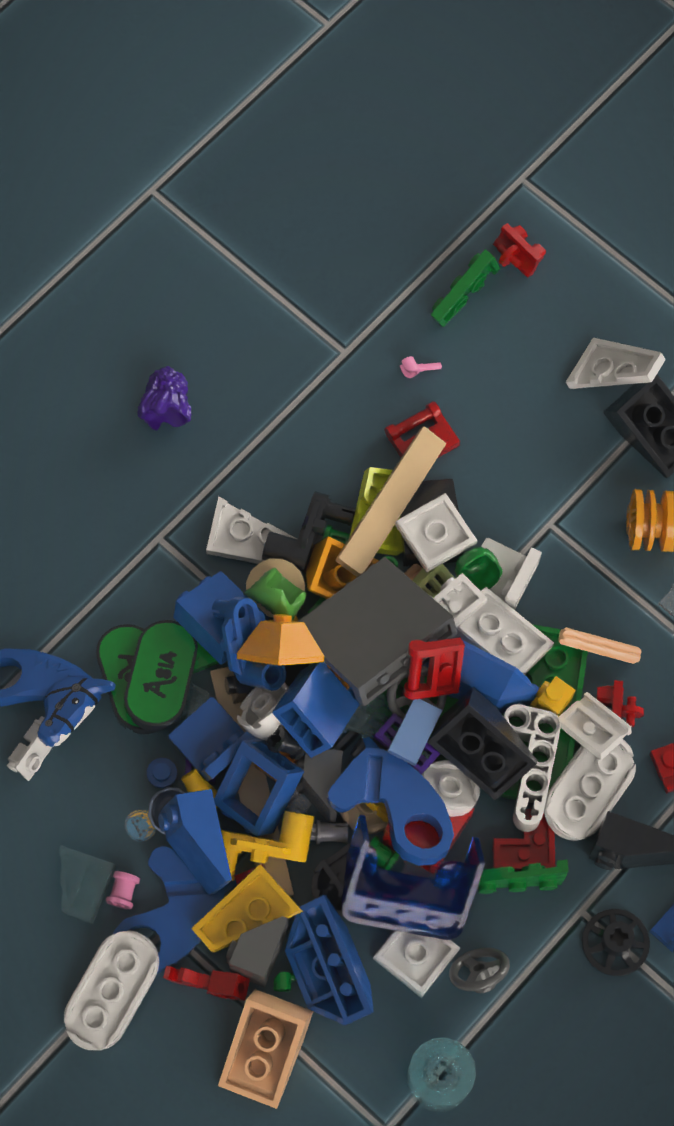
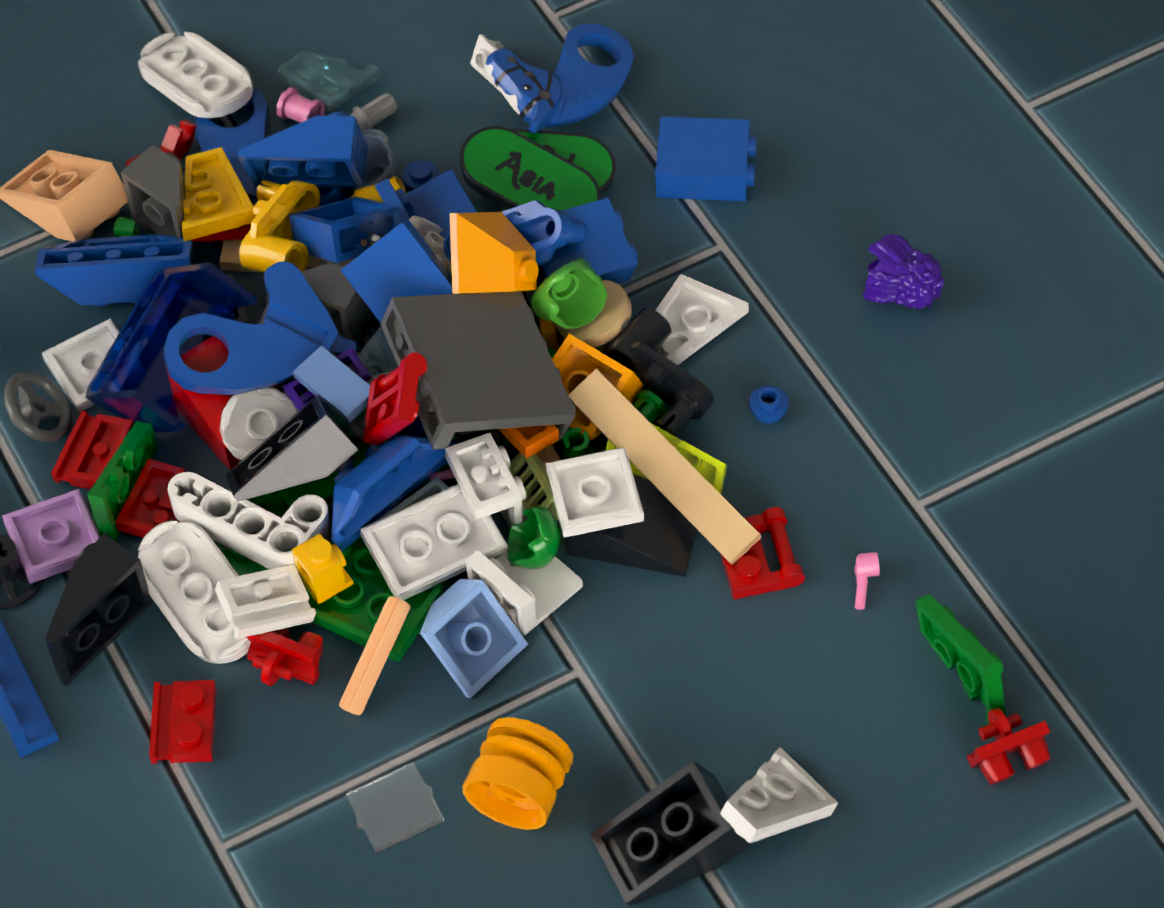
camera: 115 degrees right, 15 degrees down
(88, 567) = (704, 158): none -> blue brick
(118, 838) = (375, 111): none -> light grey axle
(297, 470) = (768, 411): none -> blue plate
(499, 915) = (90, 448): none -> red plate
(556, 594) = (471, 634): none -> light blue slope
(578, 912) = (51, 534): none -> lavender plate

